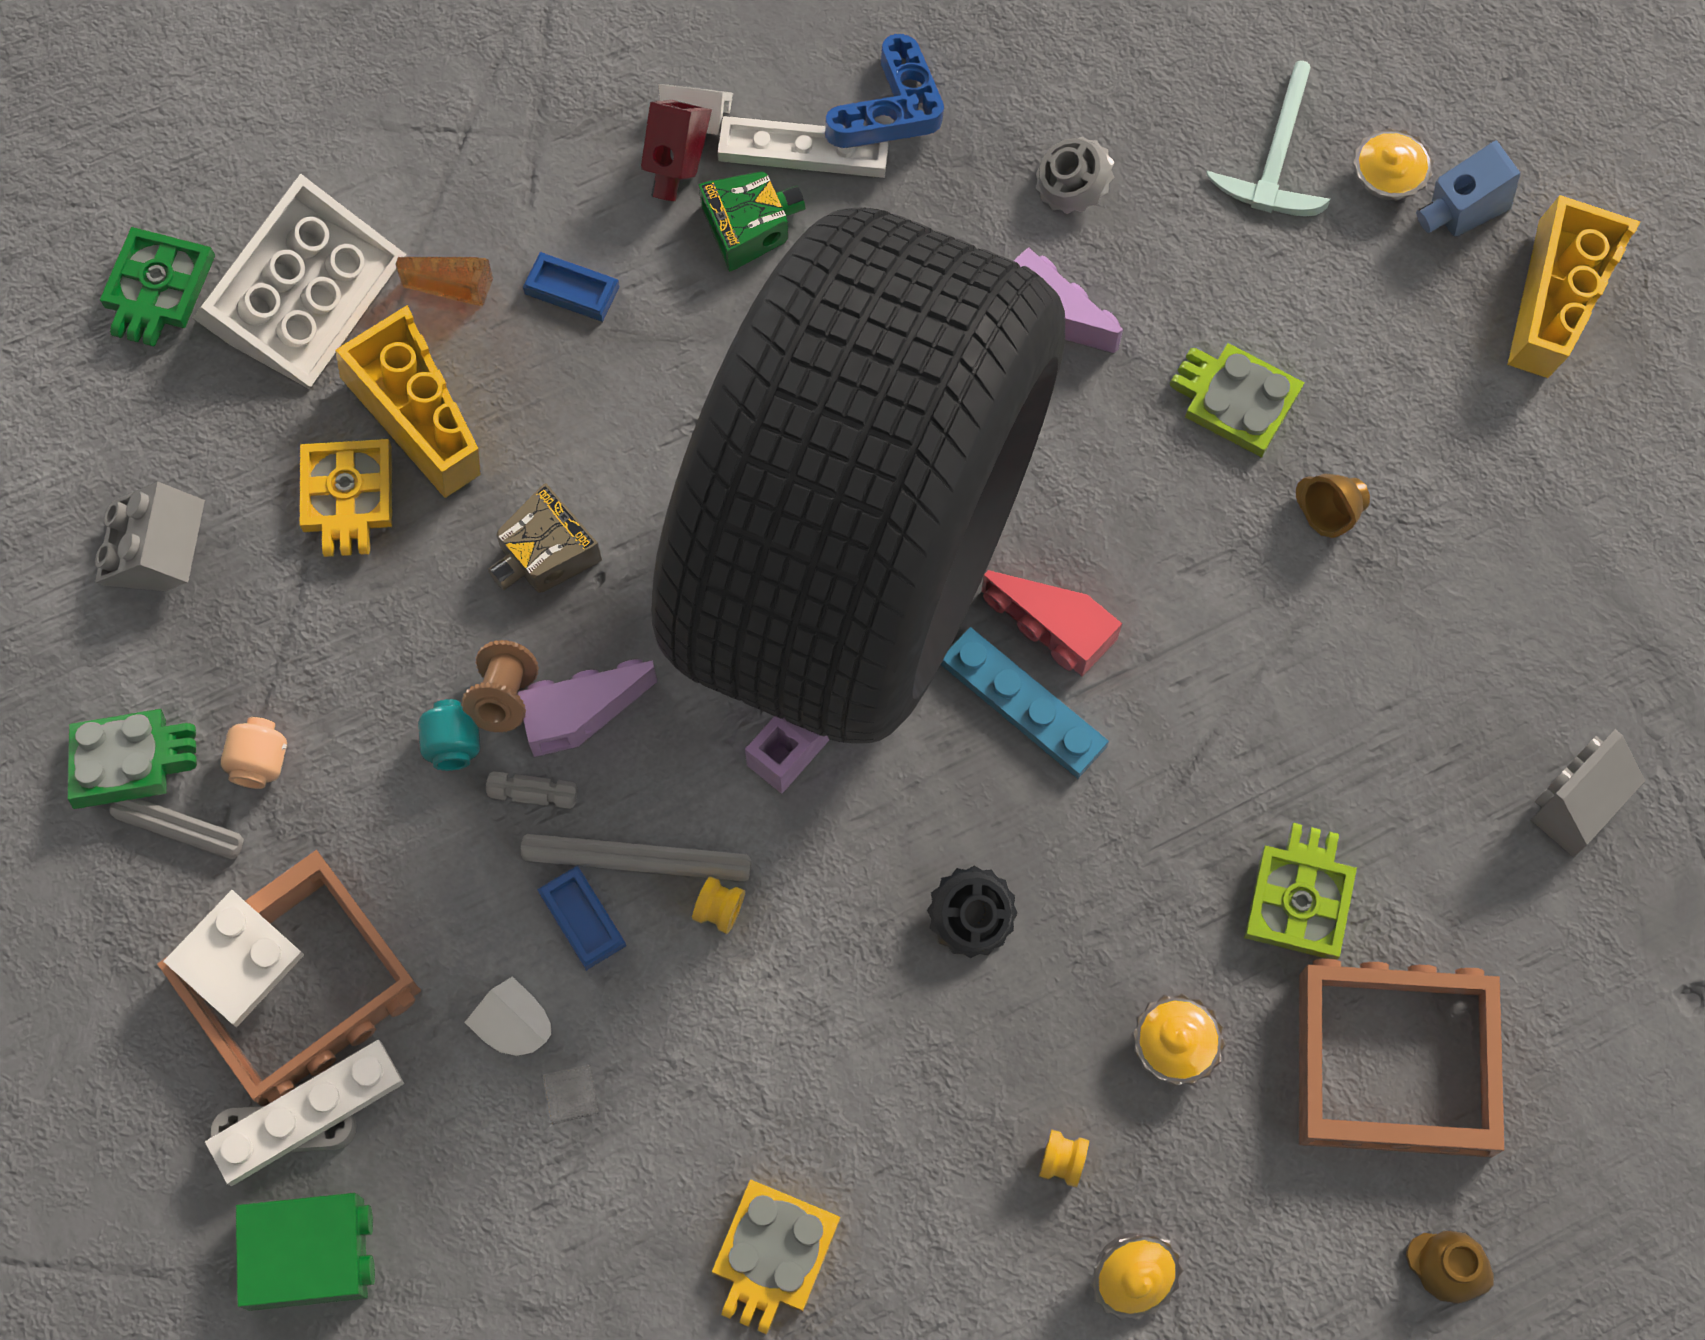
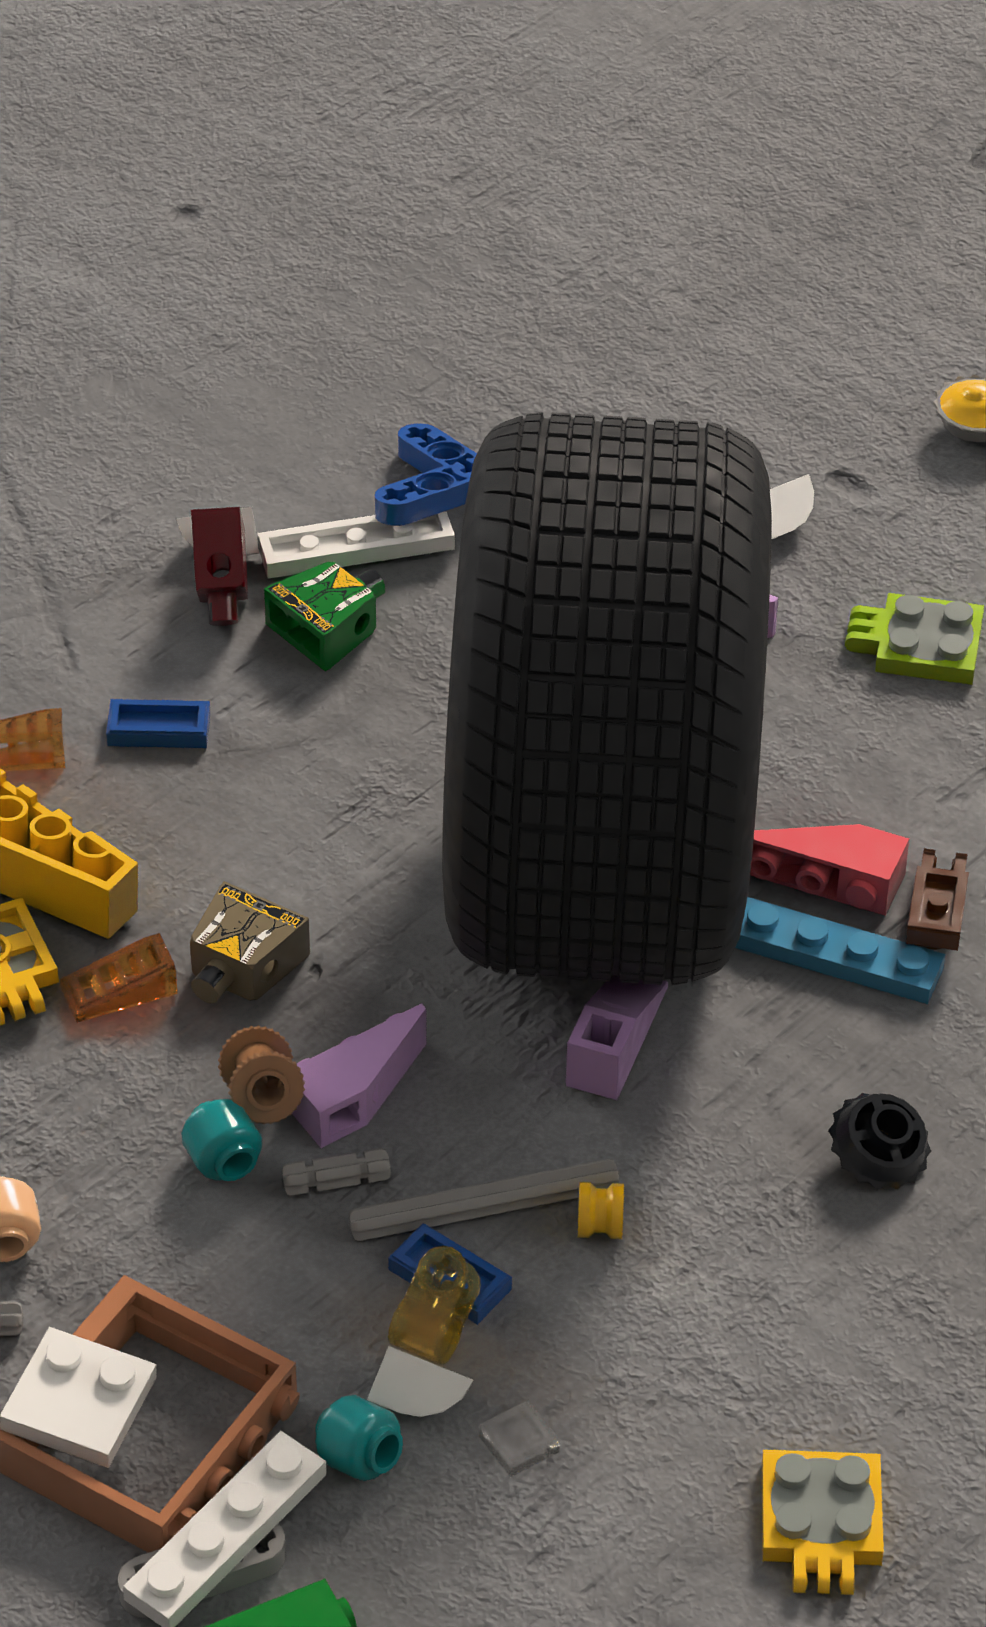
camera: 20 degrees left, 25 degrees down
(441, 1058) = (358, 1438): none -> teal head
(454, 556) = (152, 980): none -> clear orange slope
(550, 957) = (434, 1313): none -> clear yellow piece
(1123, 689) = (938, 903): none -> reddish brown hinge
(1172, 224) = (791, 505): none -> white brick
(1265, 194) = (859, 467): light aqua piece -> none

